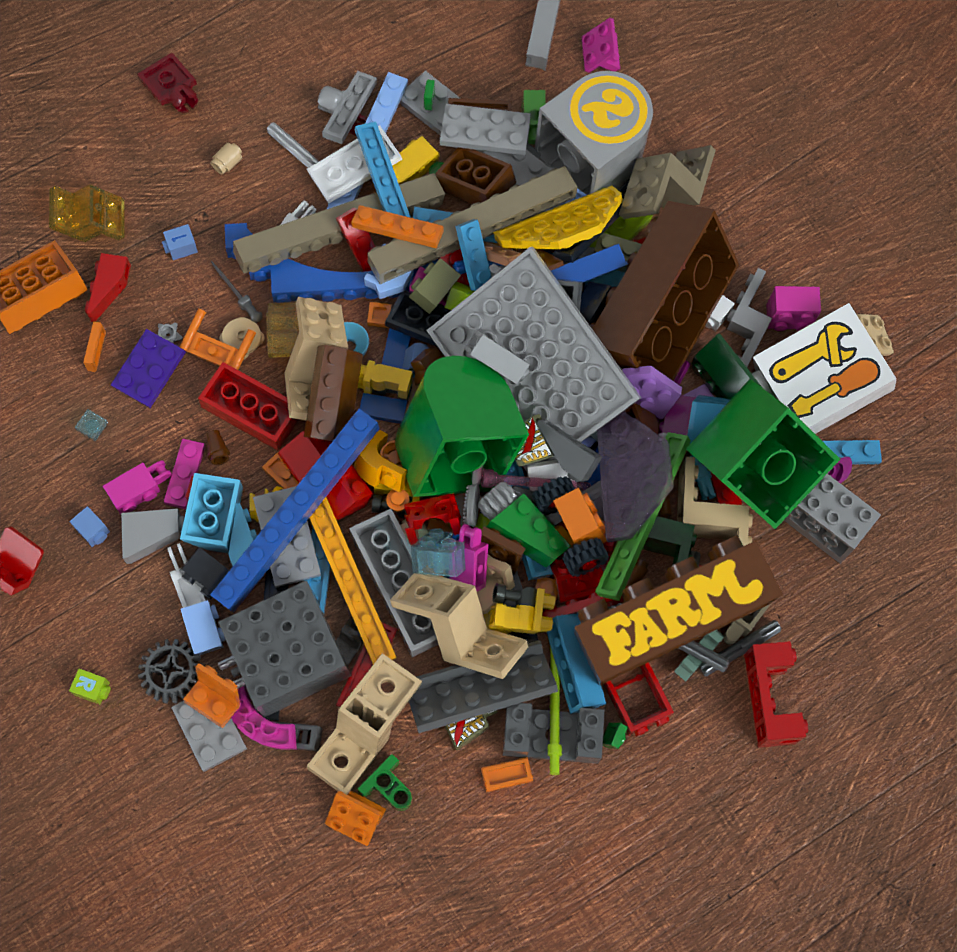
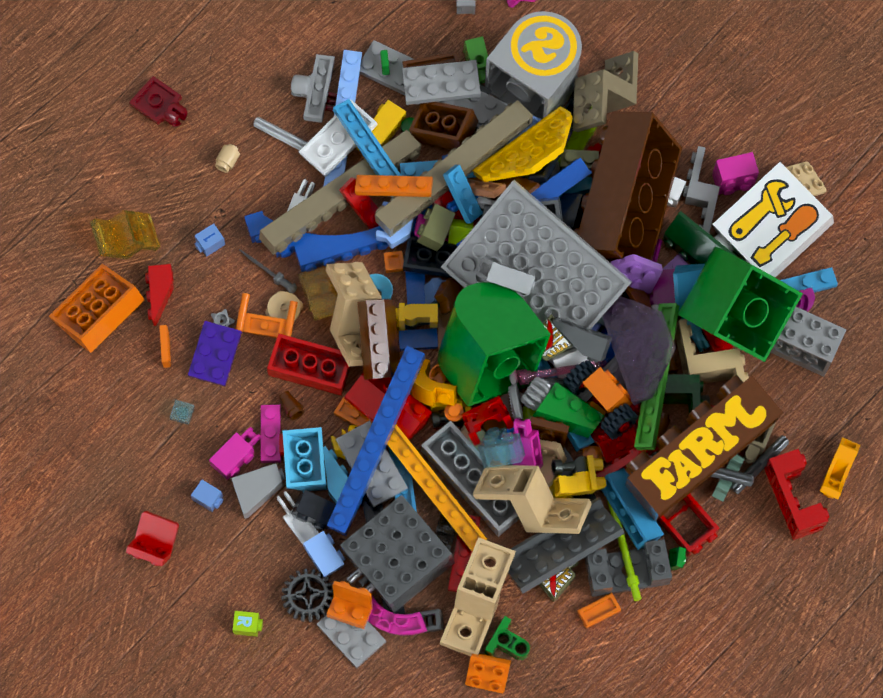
camera: 10 degrees left, 0 degrees up
(833, 676) = (839, 468): none -> light orange arch

